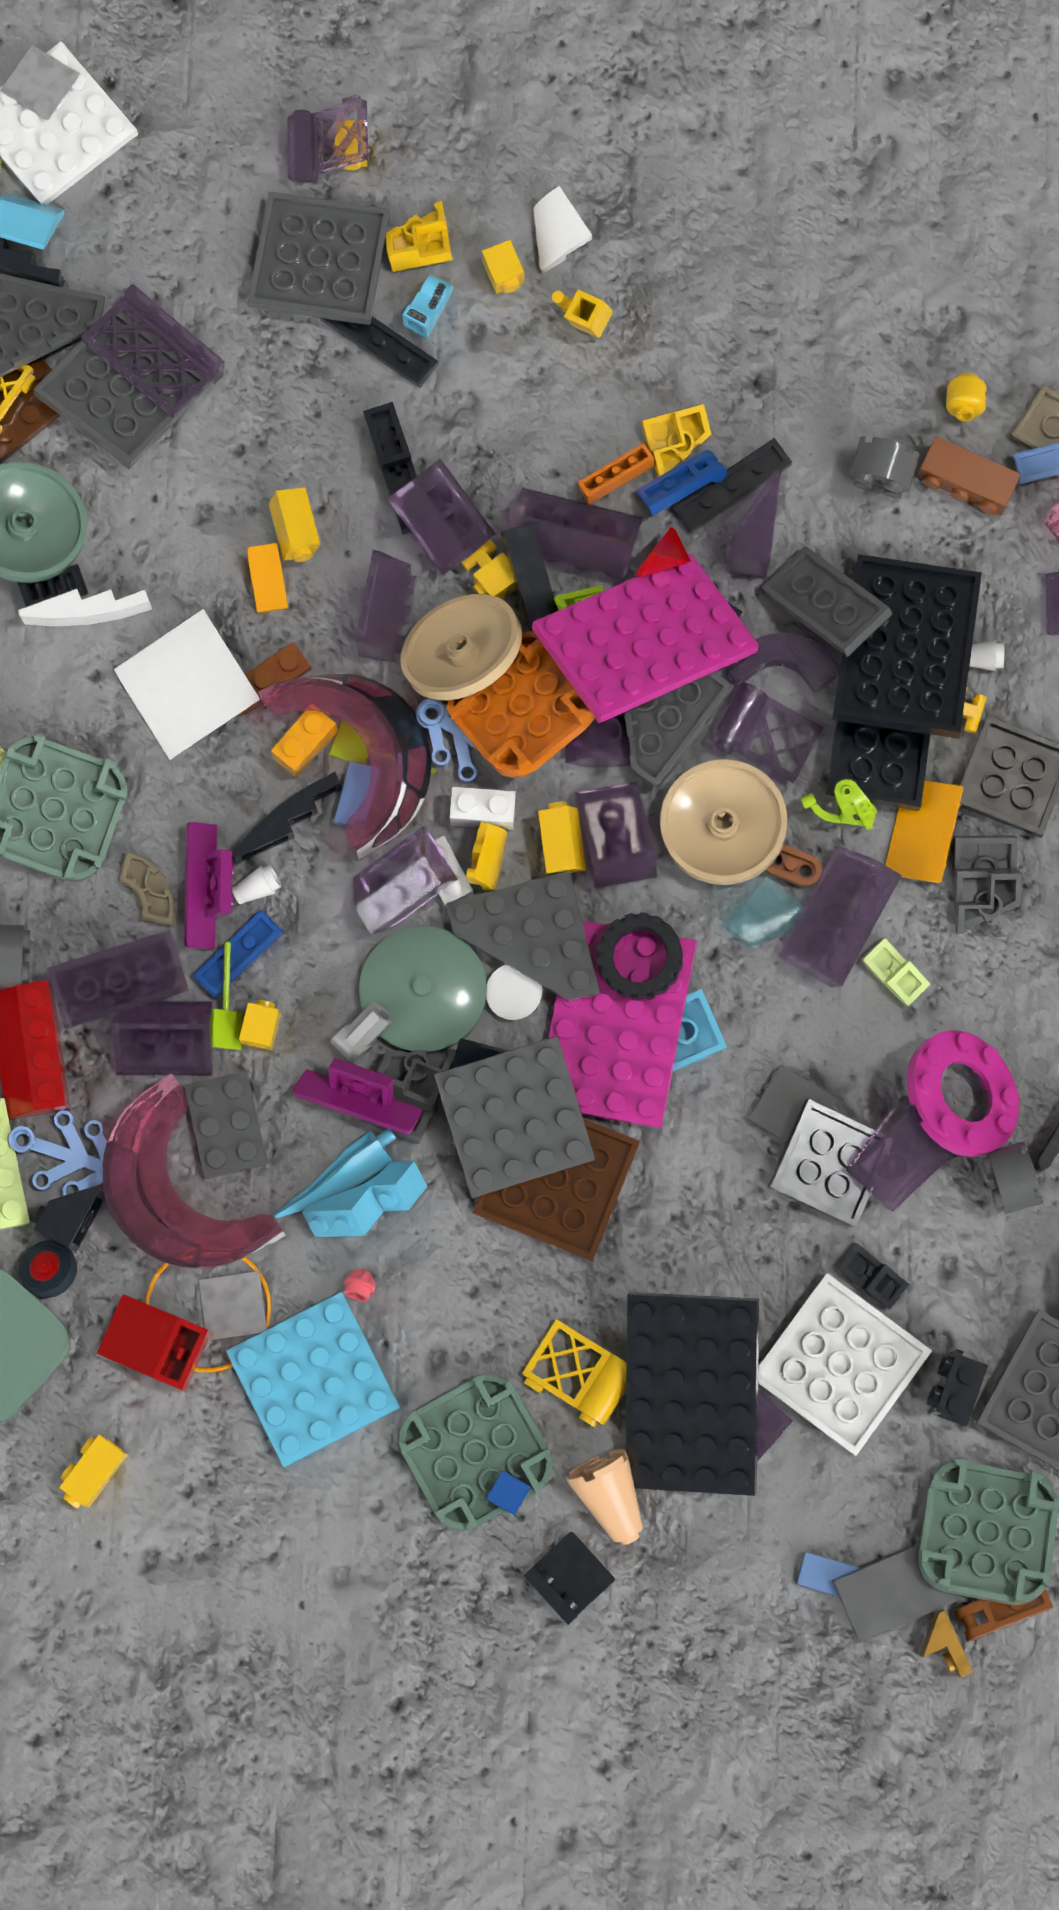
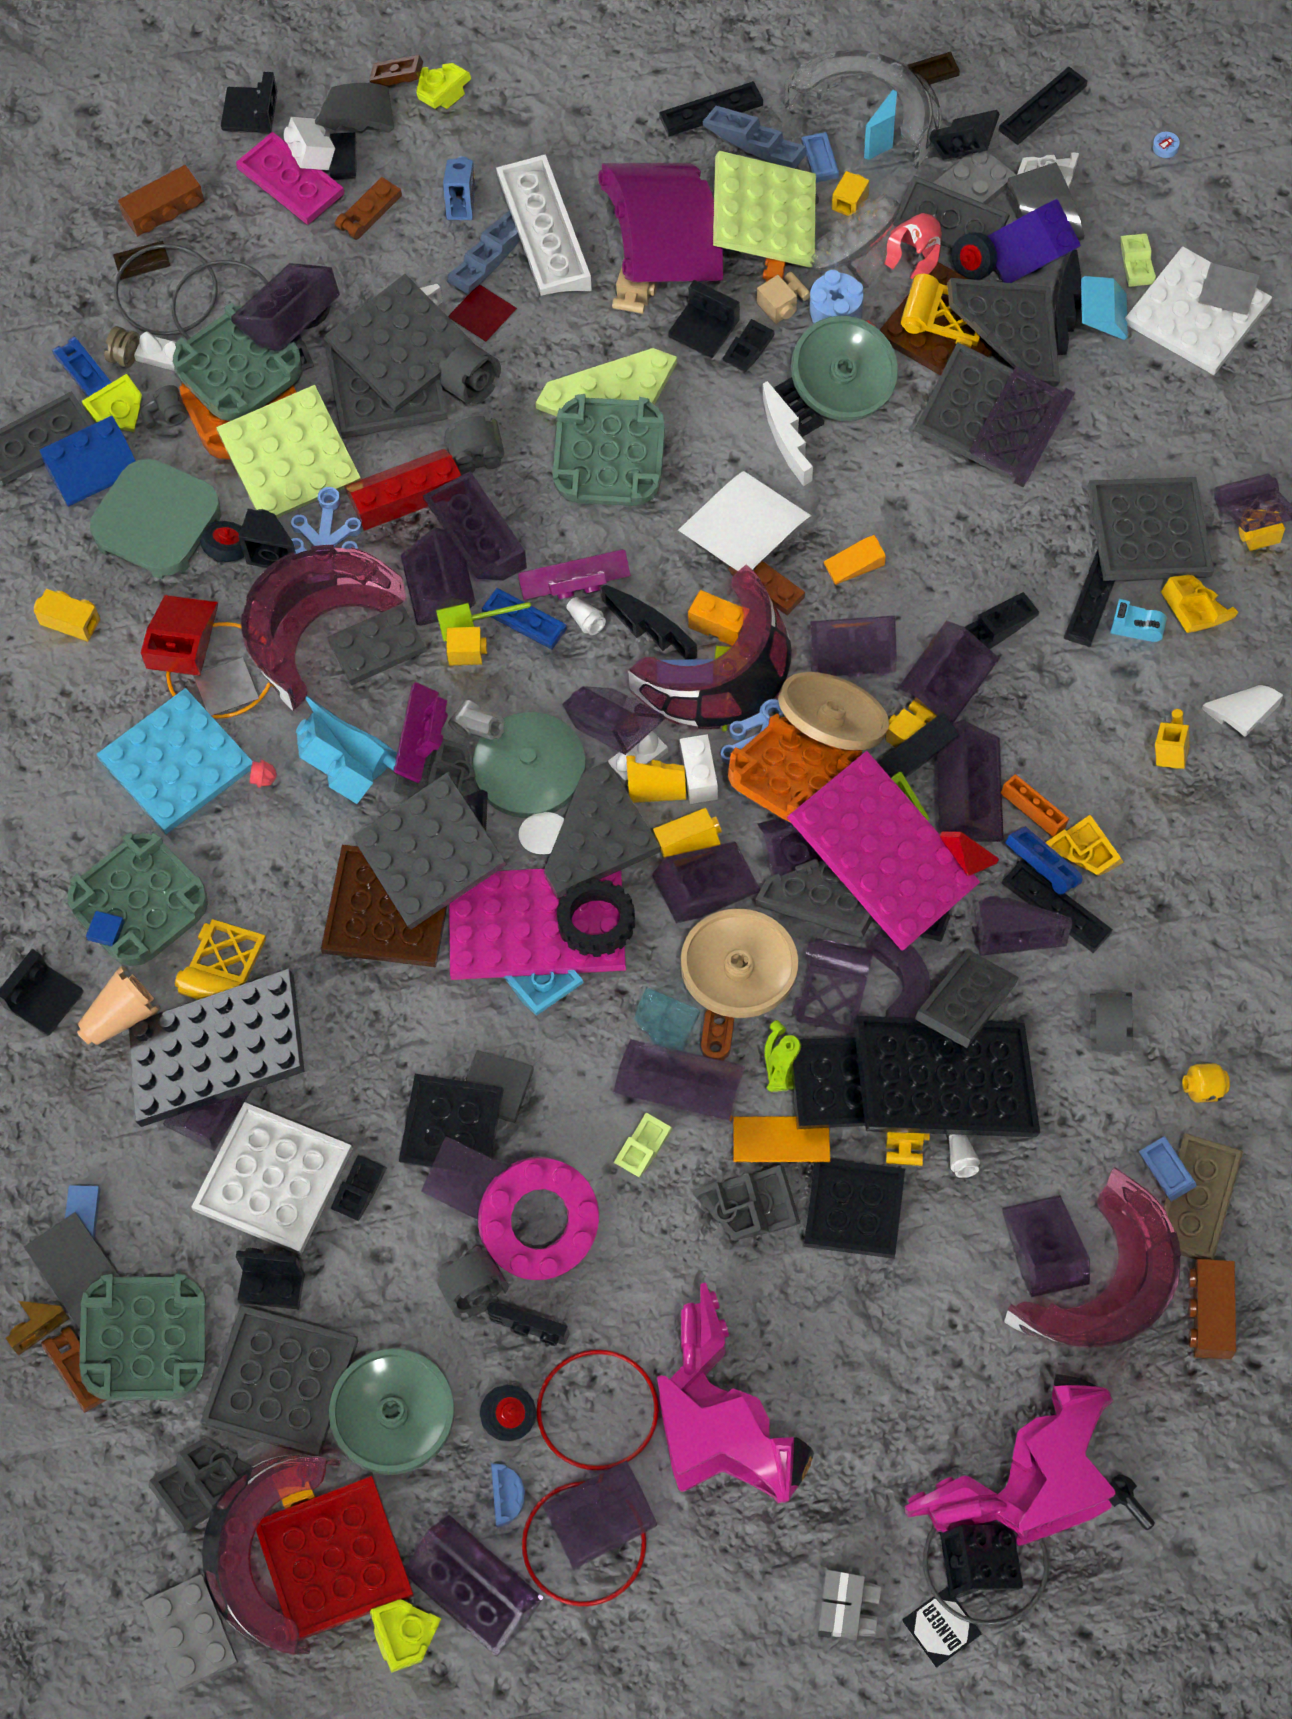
camera: 80 degrees right, 15 degrees down
(151, 888) = (563, 541): dark tan tile -> none
(294, 524) = (906, 565): yellow brick -> none
(503, 267) = (1193, 671): yellow brick -> none
(968, 476) = (1129, 1102): dark orange brick -> none

